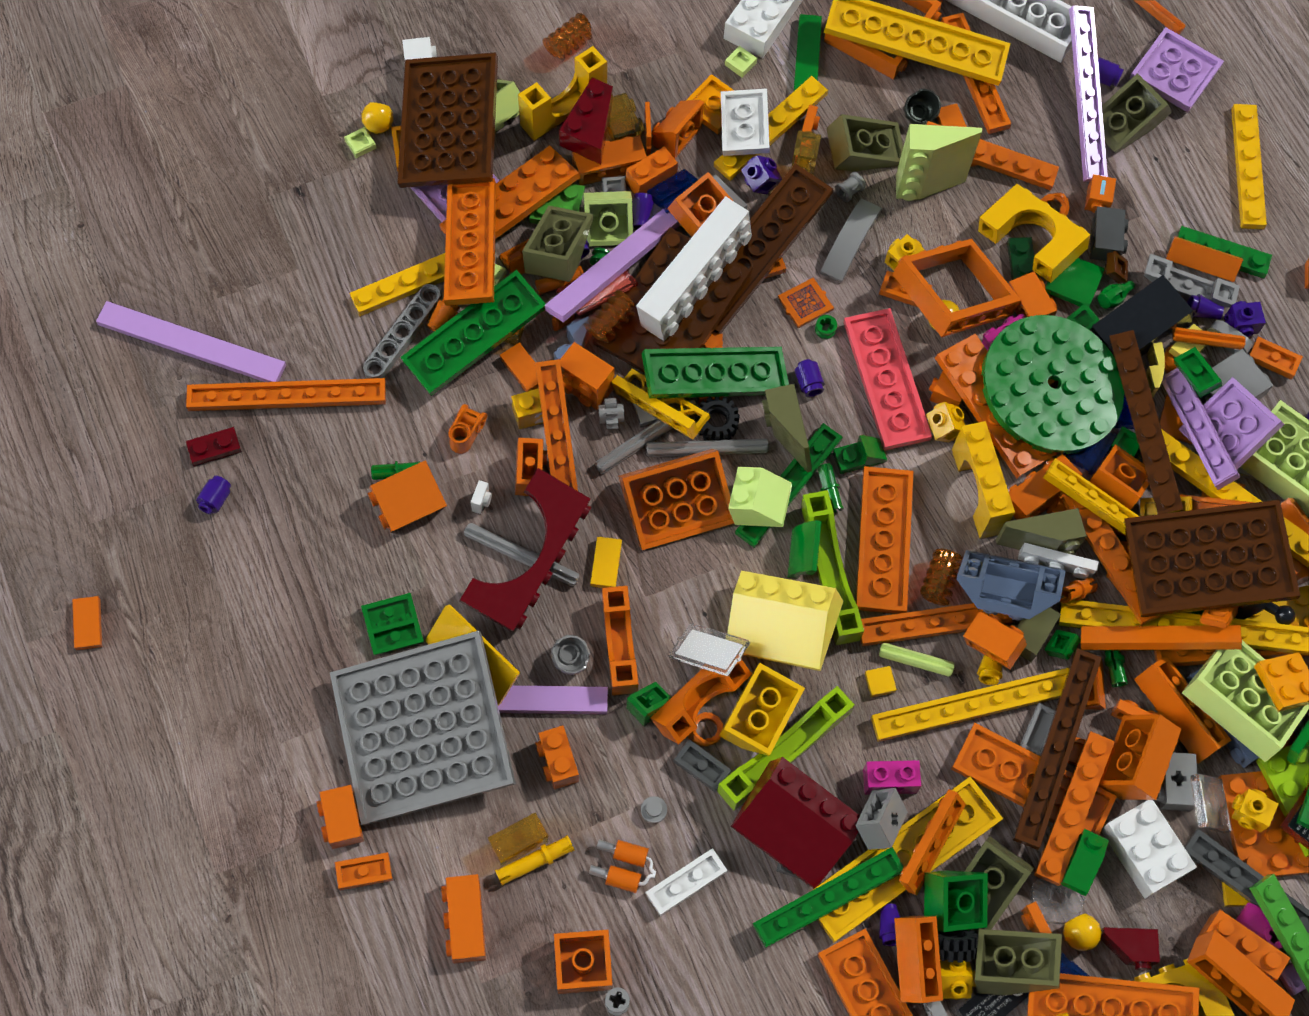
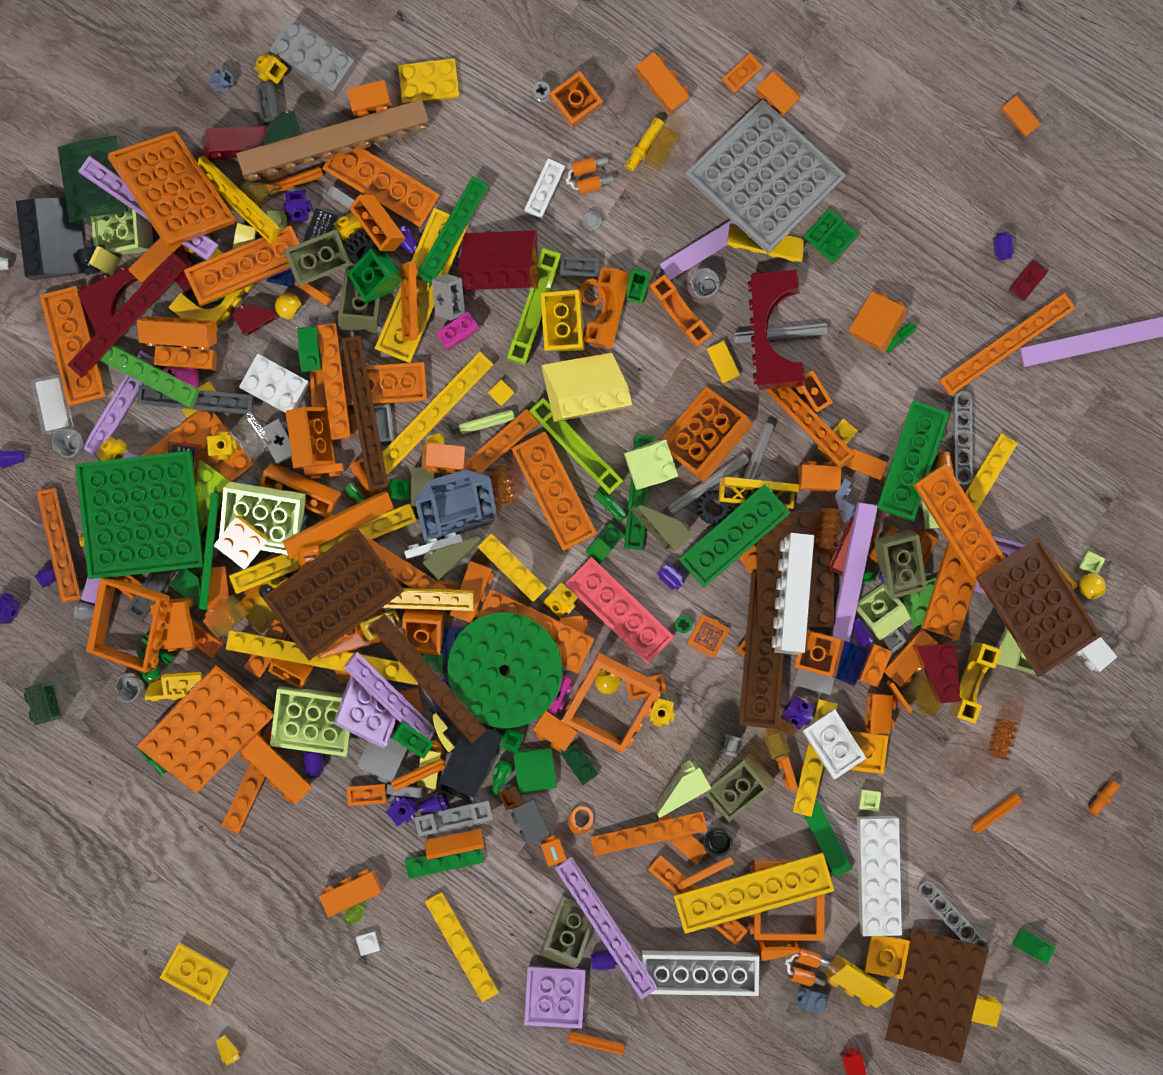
camera: 150 degrees right, 20 degrees up
(467, 424) = (874, 397): orange piece -> none
(481, 497) = (831, 353): white plate -> none
(558, 757) = (670, 213): orange brick -> none
(611, 413) = (785, 465): light grey gear -> none
(709, 649) = (620, 339): clear piece -> none
(804, 549) = (600, 445): green slope -> none
(850, 239) = (706, 705): light grey slope -> none
(956, 85) = (704, 873): none -> orange tile
(1022, 207) = (604, 802): yellow arch -> none
(1078, 590) = (409, 530): orange pin -> none

